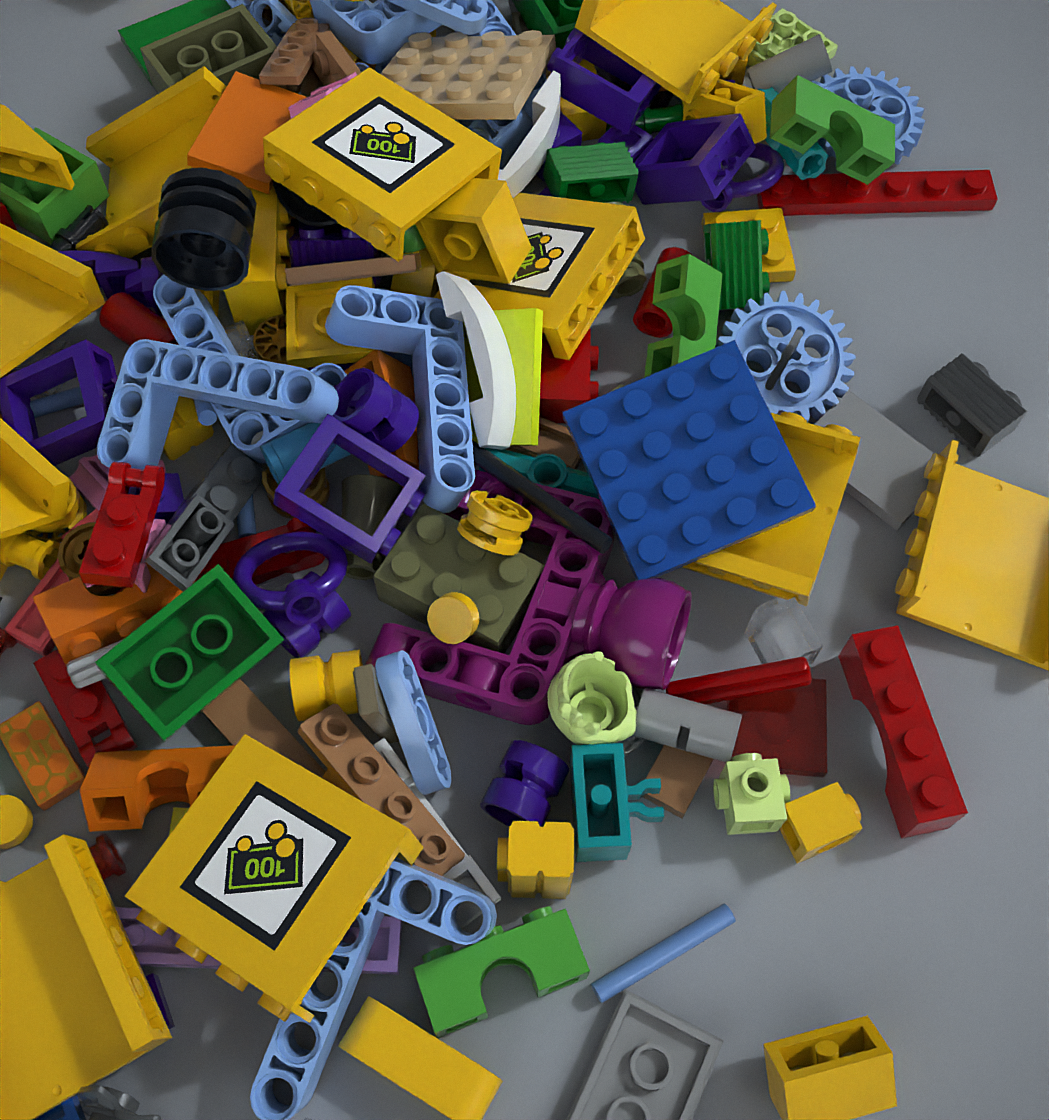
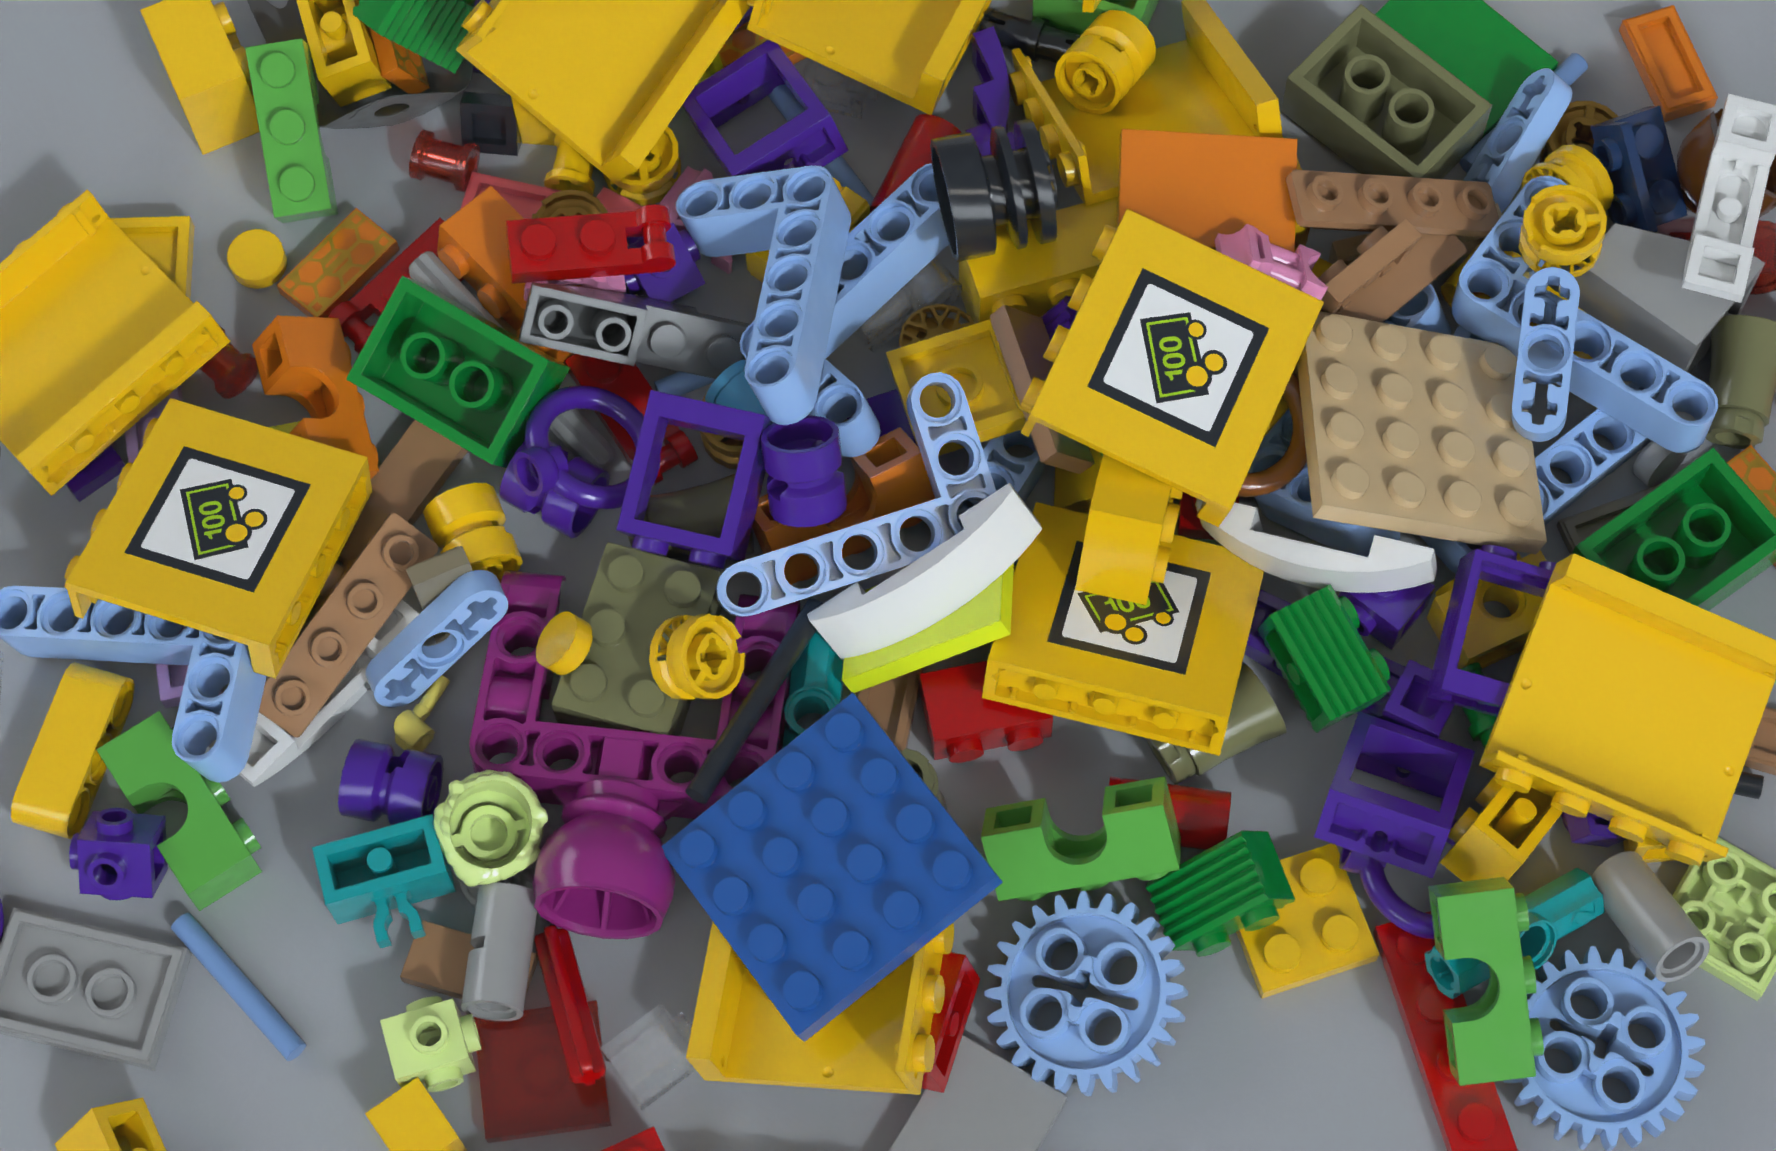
camera: 80 degrees right, 5 degrees up
(113, 187) = (1105, 62): none -> yellow wheel
(475, 770) = (409, 726): none -> light yellow hand
(533, 1031) = (119, 854): none -> dark purple brick
(537, 859) = (295, 809): yellow brick -> none

